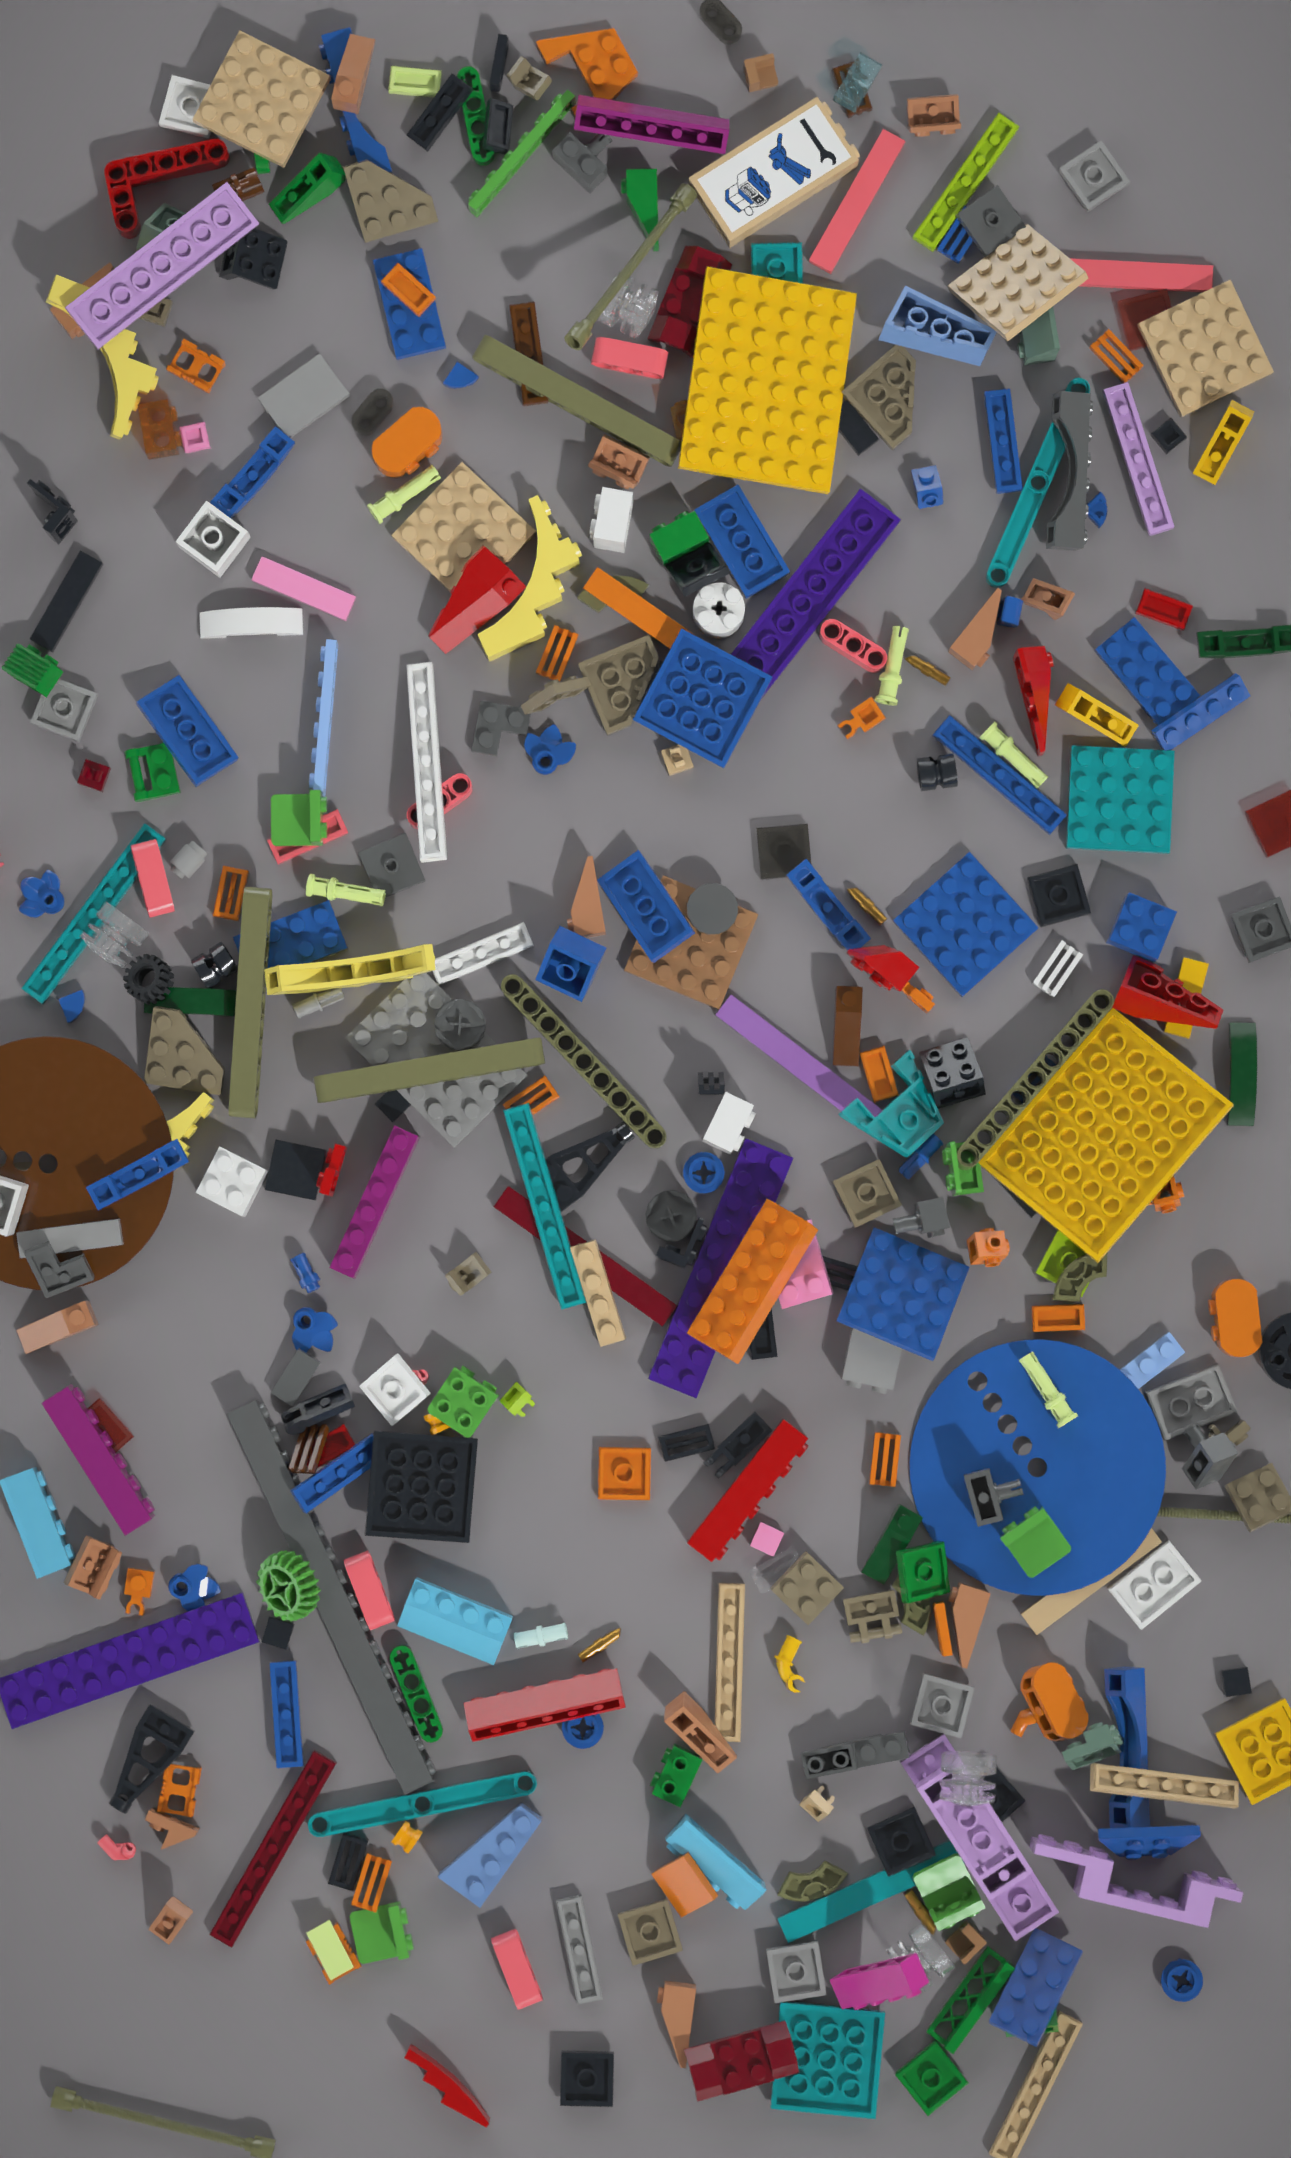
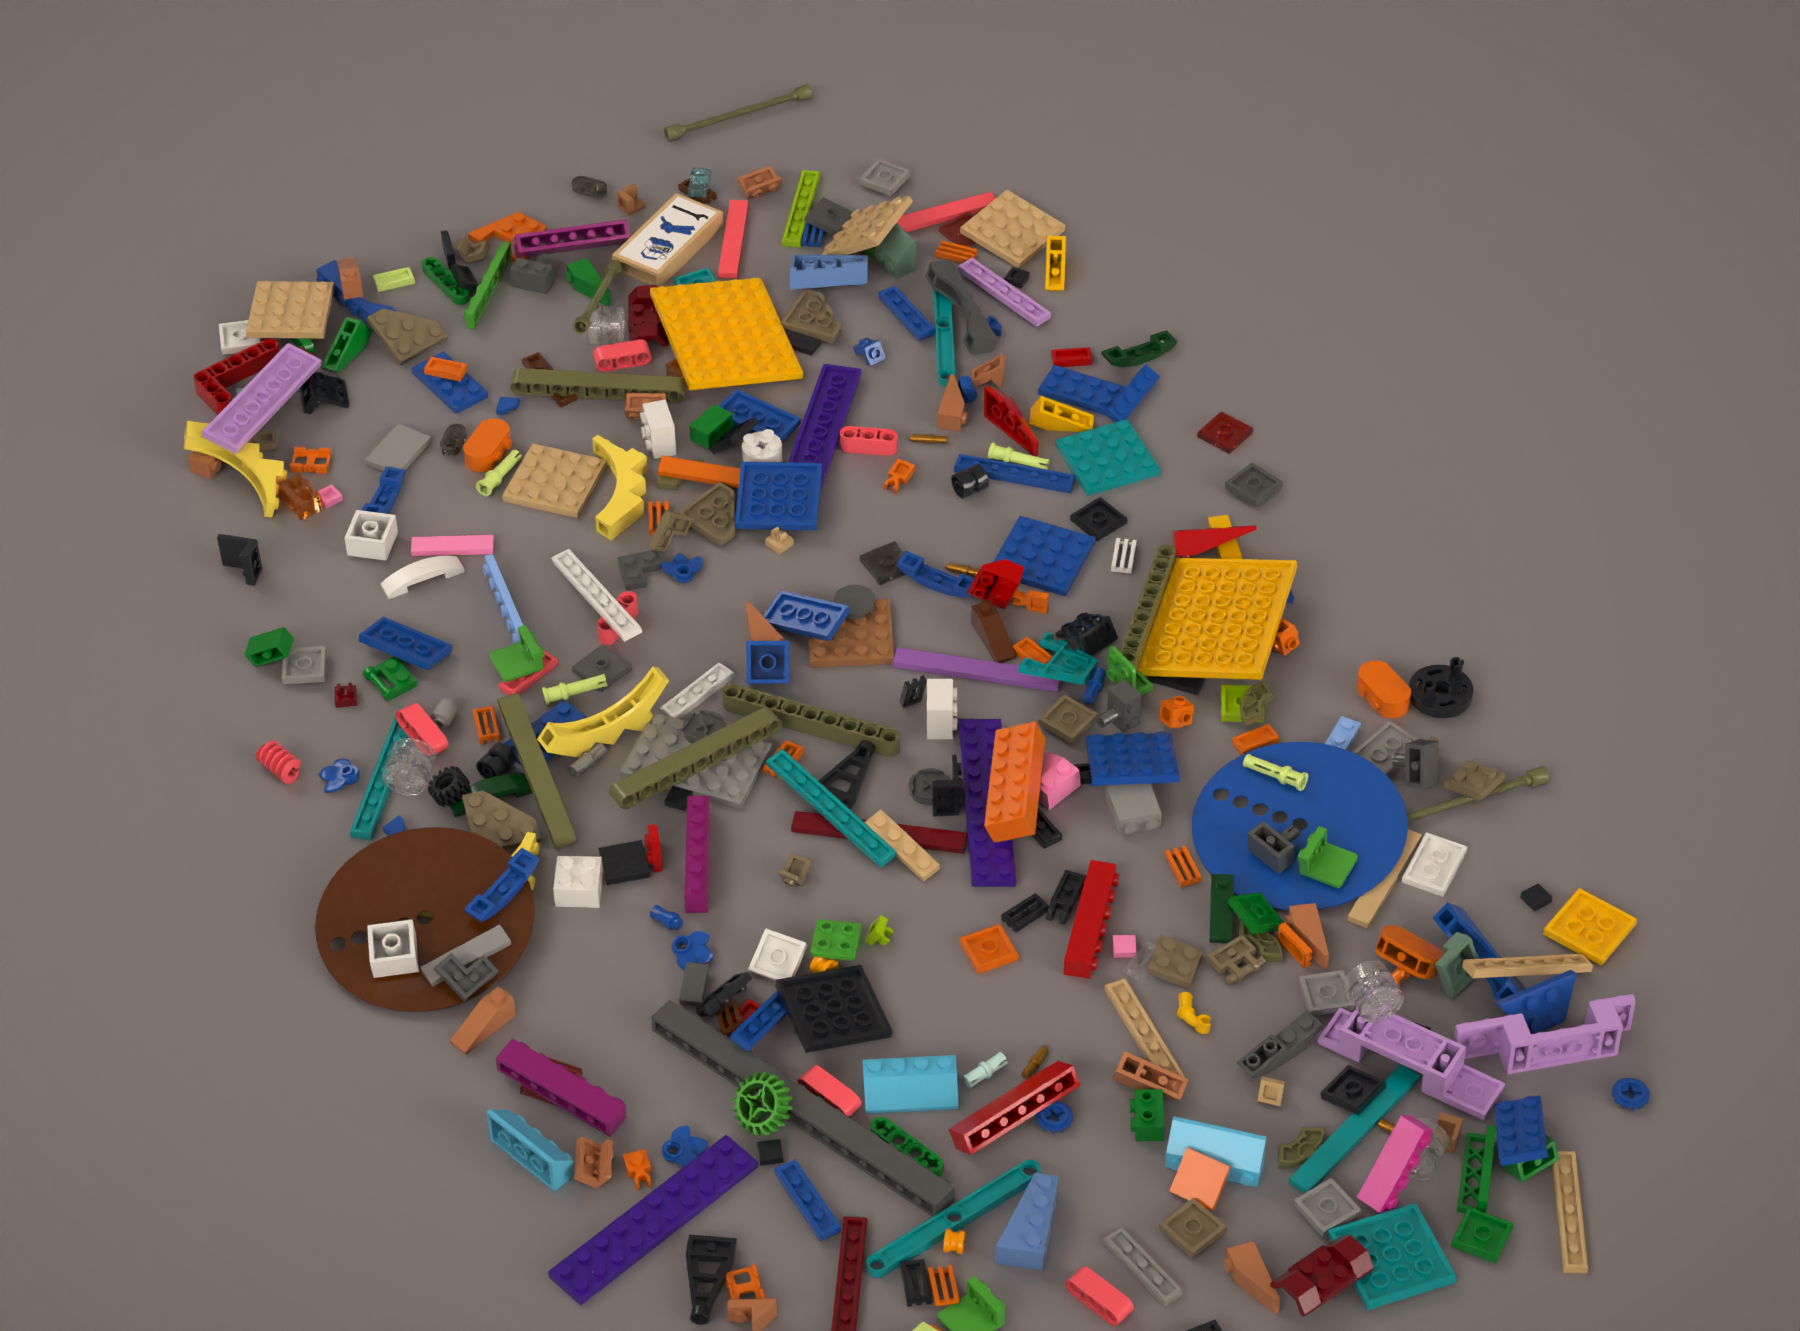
camera: 25 degrees left, 40 degrees down
(66, 601) = (277, 605): black tile -> none
(439, 112) = (419, 284): black tile -> none
(479, 595) = (583, 499): red wedge -> none
(712, 1181) = (943, 746): blue gear -> none
(890, 678) = (905, 448): yellowish green pin -> none
(948, 1891) = (1408, 1098): bright green bracket -> none
(1141, 927) = (1167, 509): blue brick -> none
(1242, 1073) = (1304, 578): dark green slope -> none

